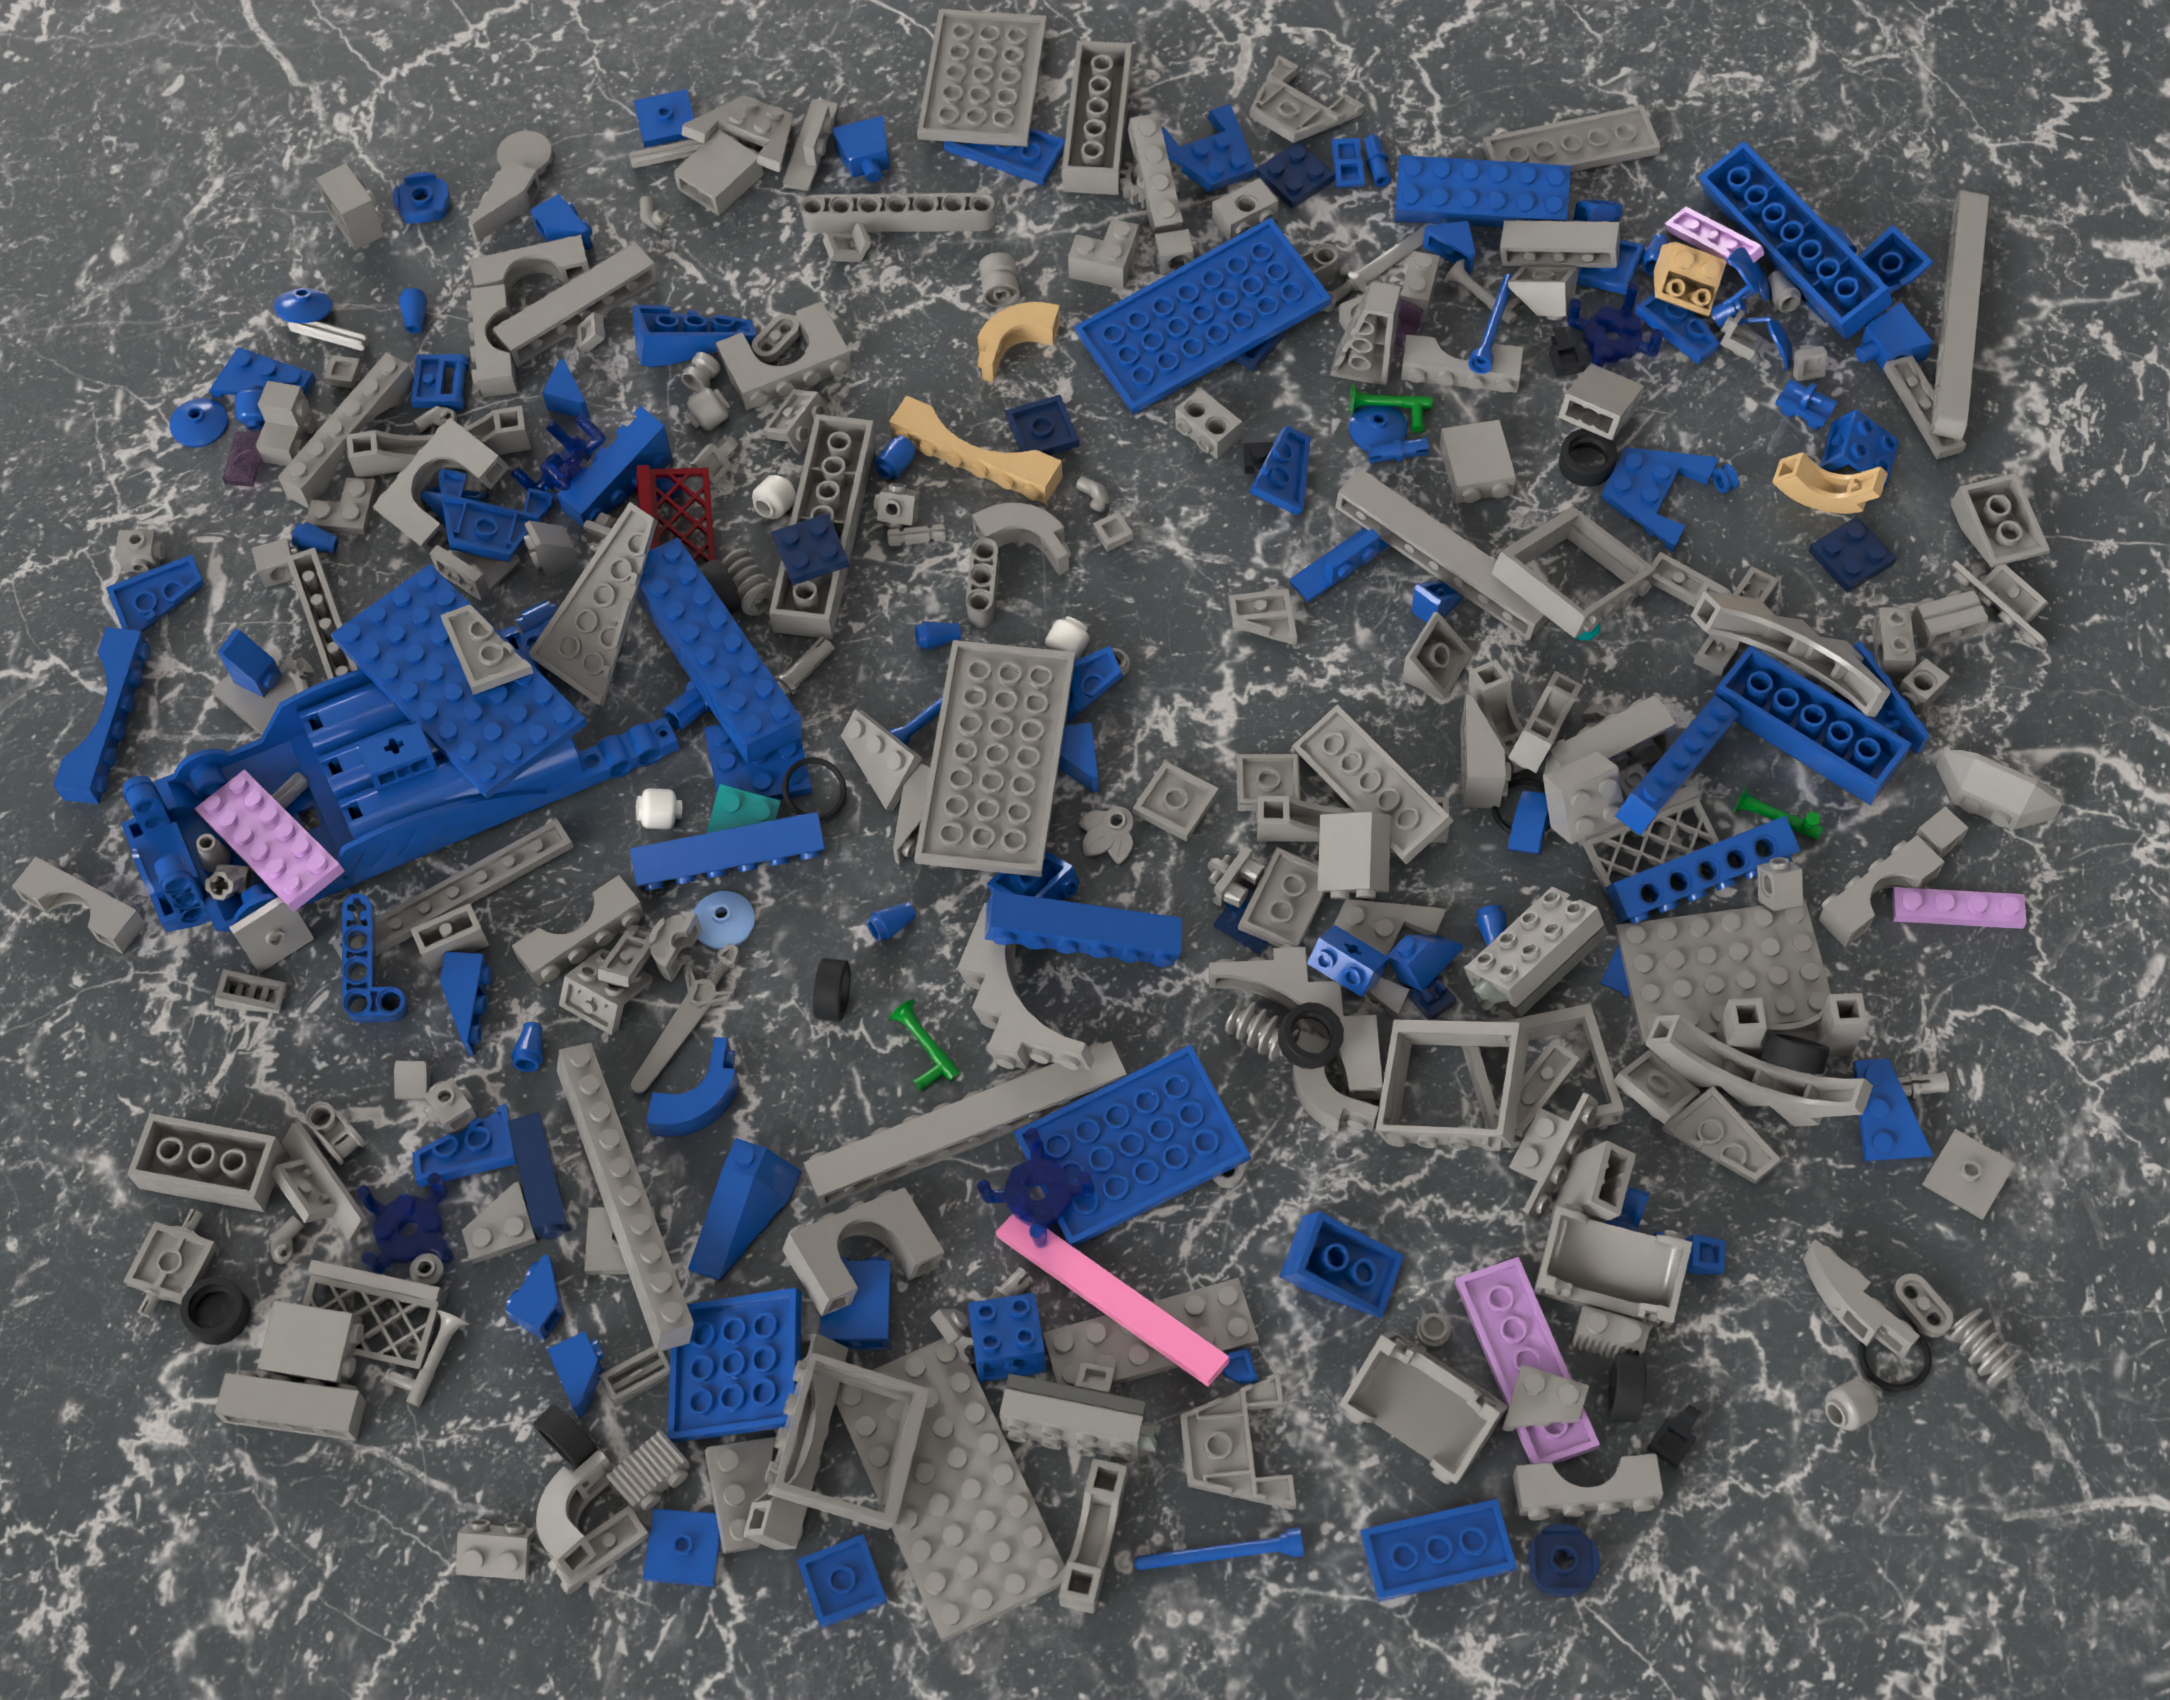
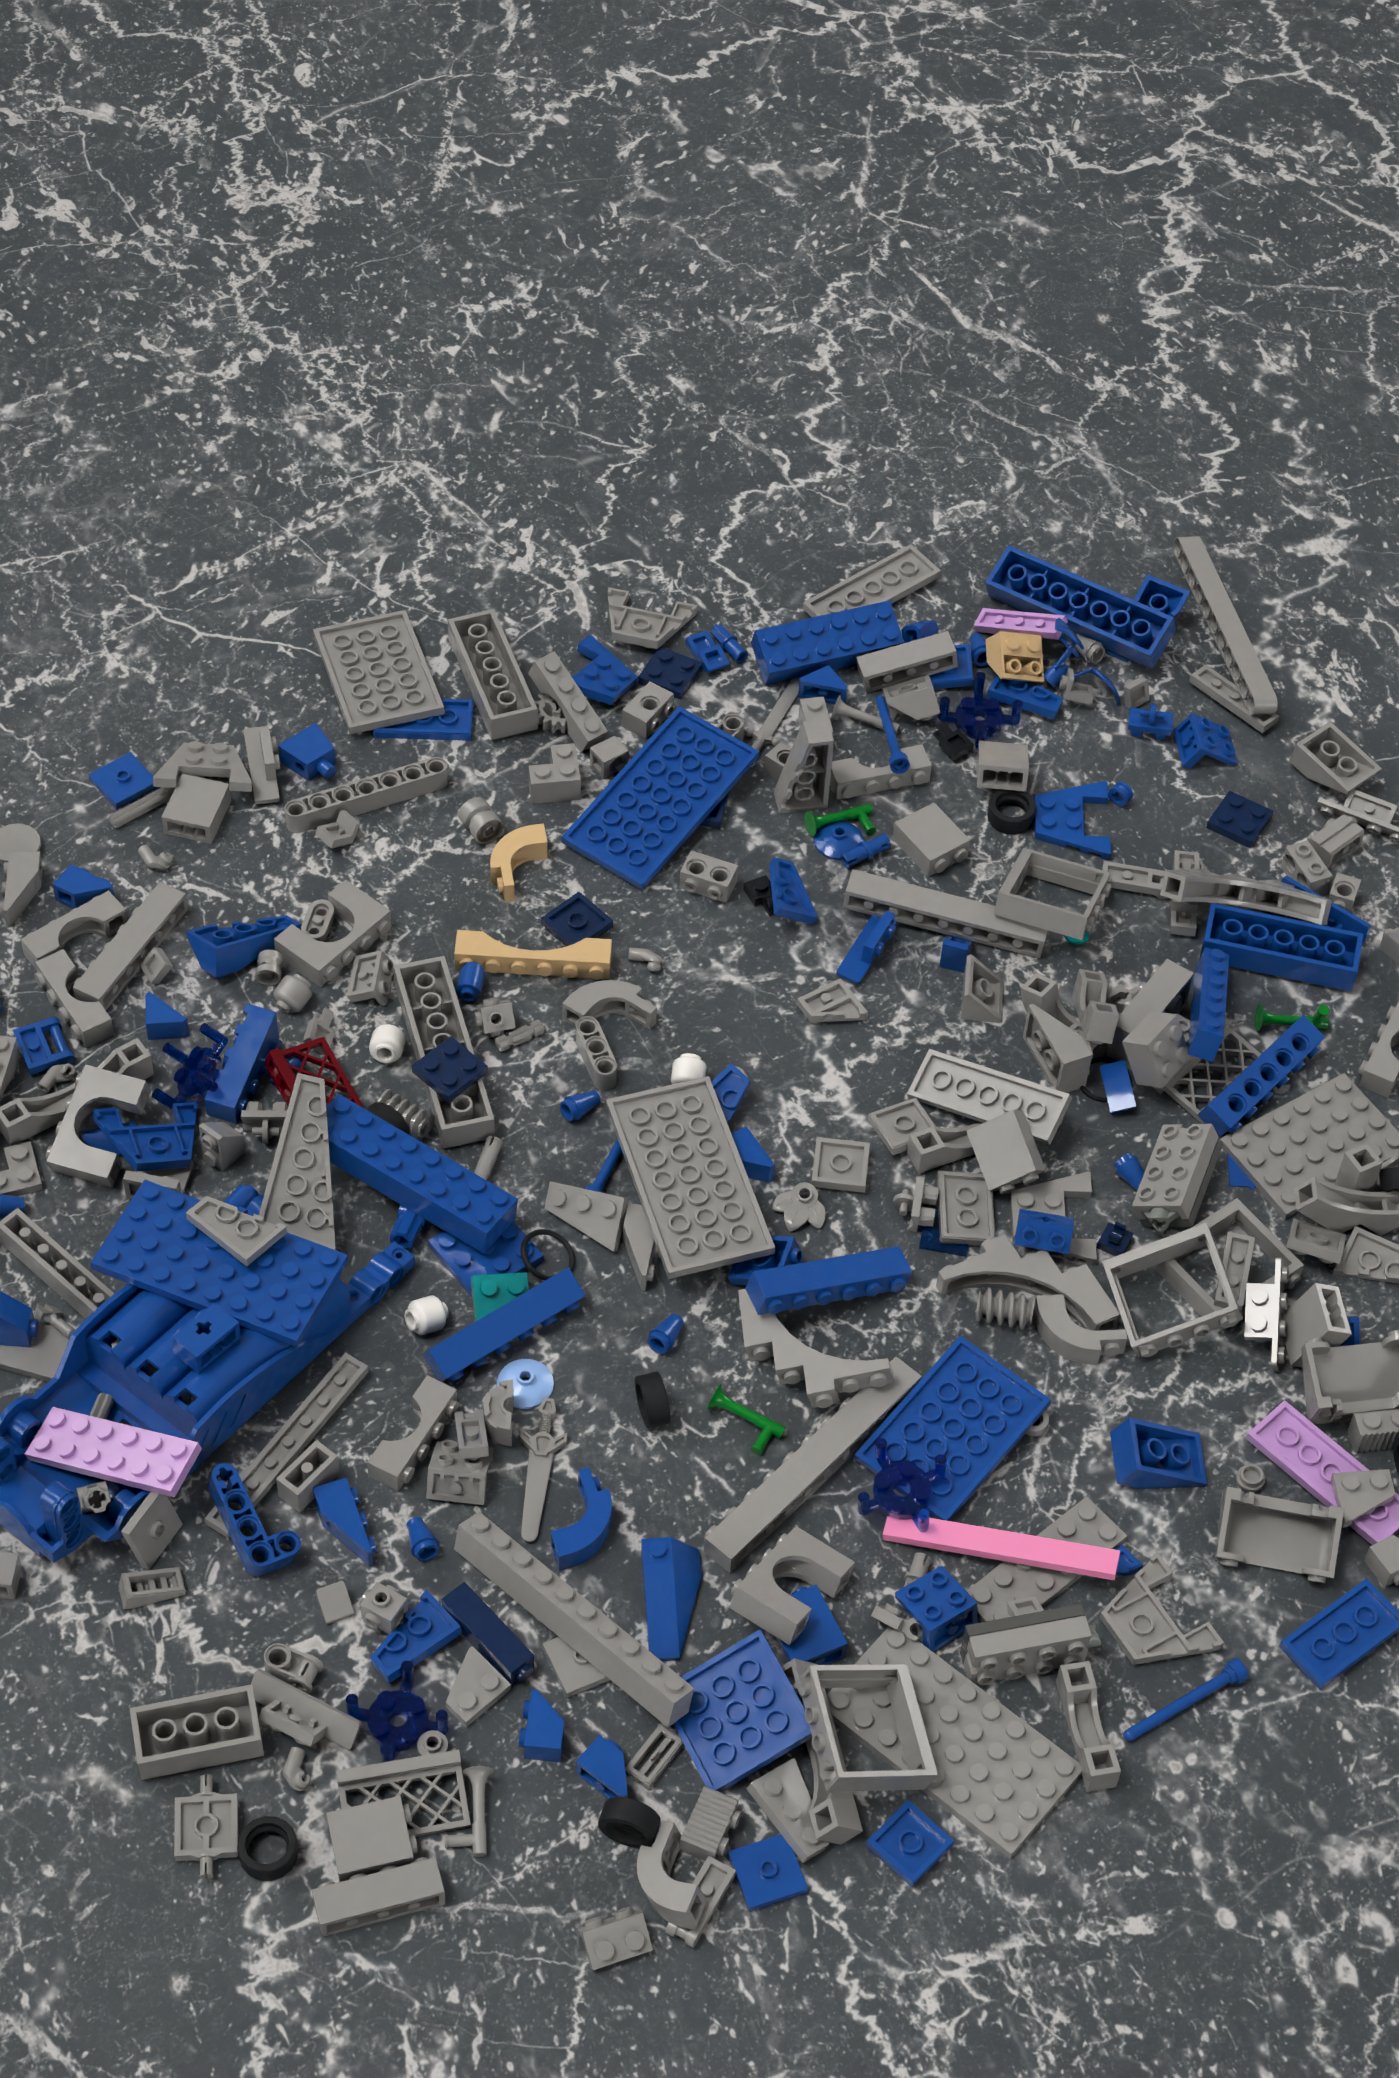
camera: 30 degrees left, 10 degrees down
(212, 852) = (64, 1475): light grey cone -> none
(1113, 531) = (677, 981): light grey plate -> none
(1320, 1014) = (1042, 1308): black tyre -> none
(1422, 958) = (1094, 1213): blue slope -> none
(1780, 884) = (1323, 1066): light grey brick -> none
(1826, 491) = (1200, 779): tan arch -> none
(1893, 337) = (1186, 656): blue torso -> none

